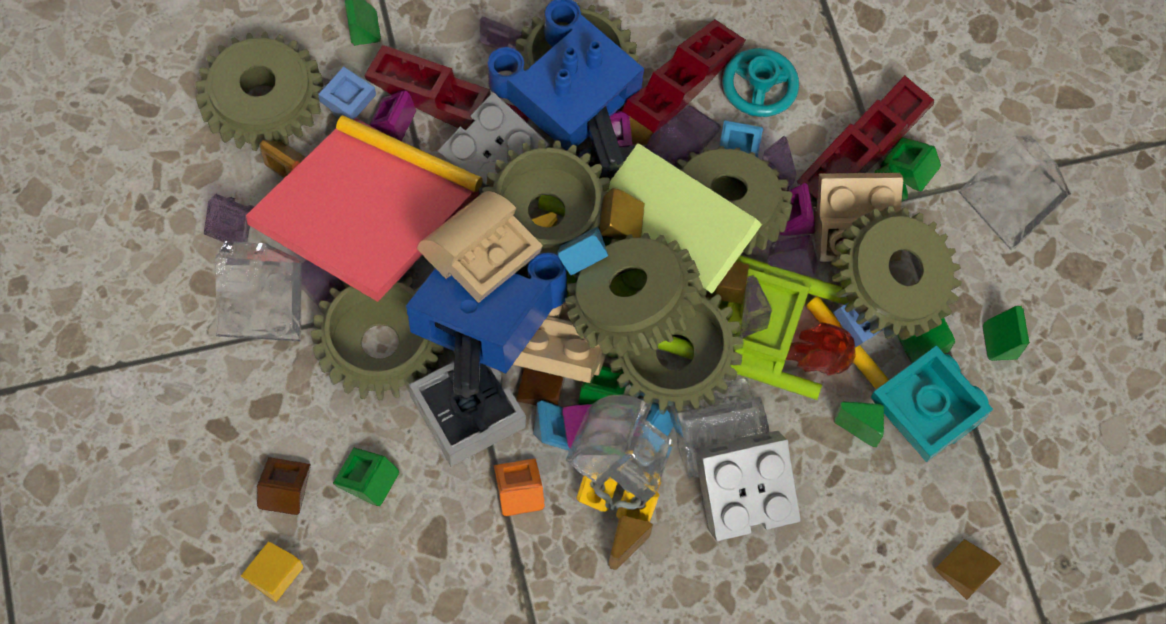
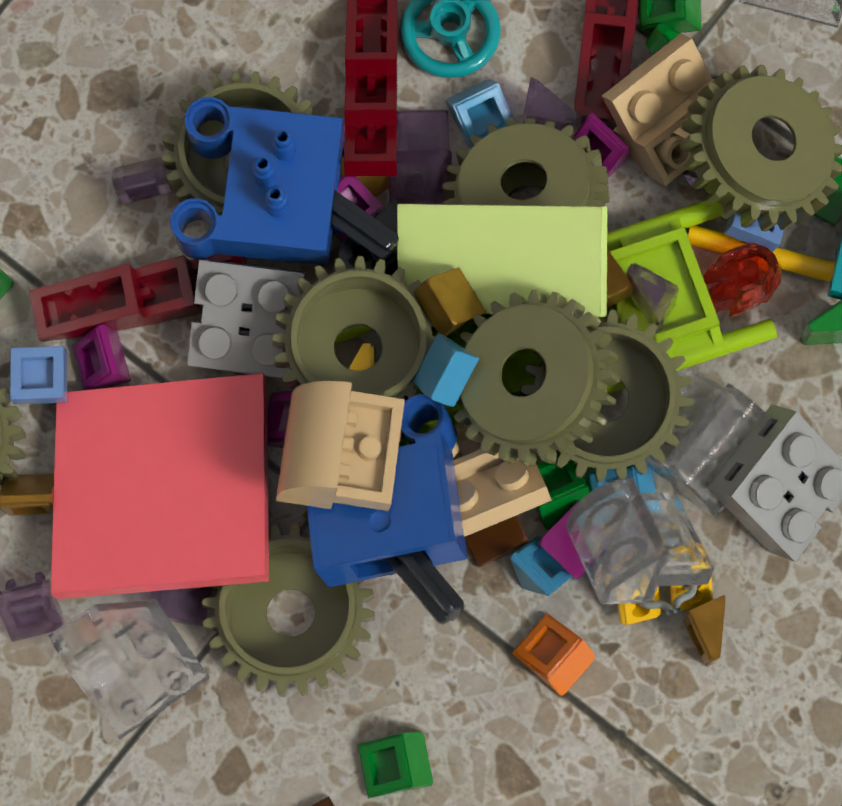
camera: 30 degrees left, 10 degrees up
(409, 153) = (161, 392): yellow bar -> none
(469, 424) = (442, 649): piece -> none
(794, 255) = (636, 200): clear purple slope -> none

